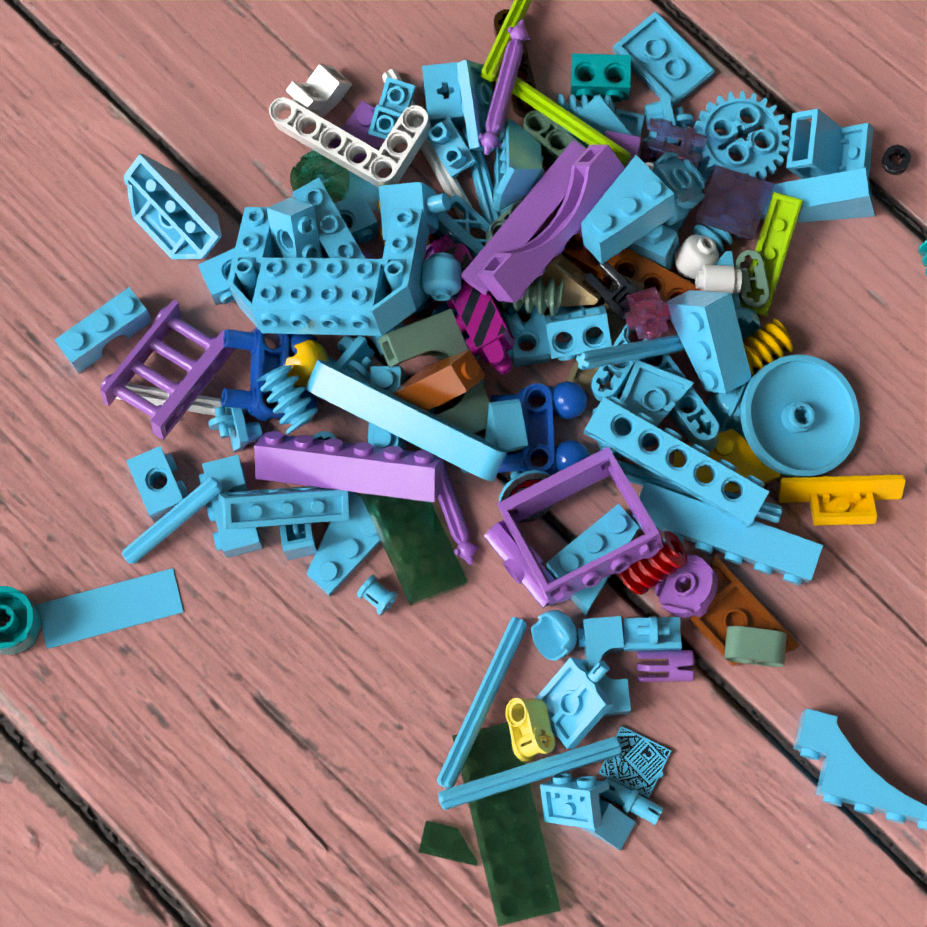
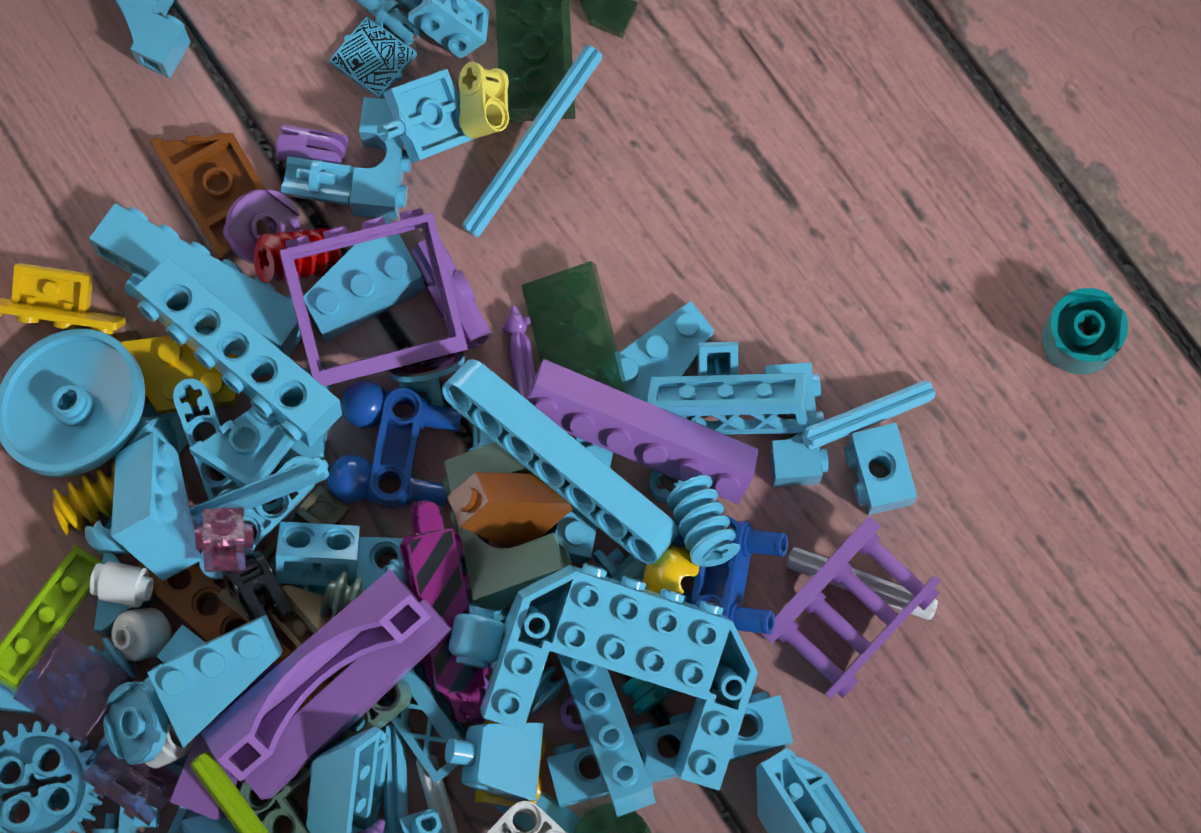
camera: 170 degrees left, 0 degrees up
(110, 608) = (956, 337): medium azure sticker -> none
(117, 317) = (927, 680): medium azure arch -> none
(231, 423) = (769, 515): medium azure hips -> none
(294, 229) = (658, 733): medium azure brick -> none
(377, 594) = (632, 288): medium azure bush -> none
(506, 425) = (437, 442): medium azure slope -> none
(529, 773) = (495, 51): medium azure axle -> none
(554, 634) = (433, 195): medium azure hair -> none
(755, 646) = (201, 139): sand green beam -> none
(760, 278) = (68, 586): sand green beam -> none

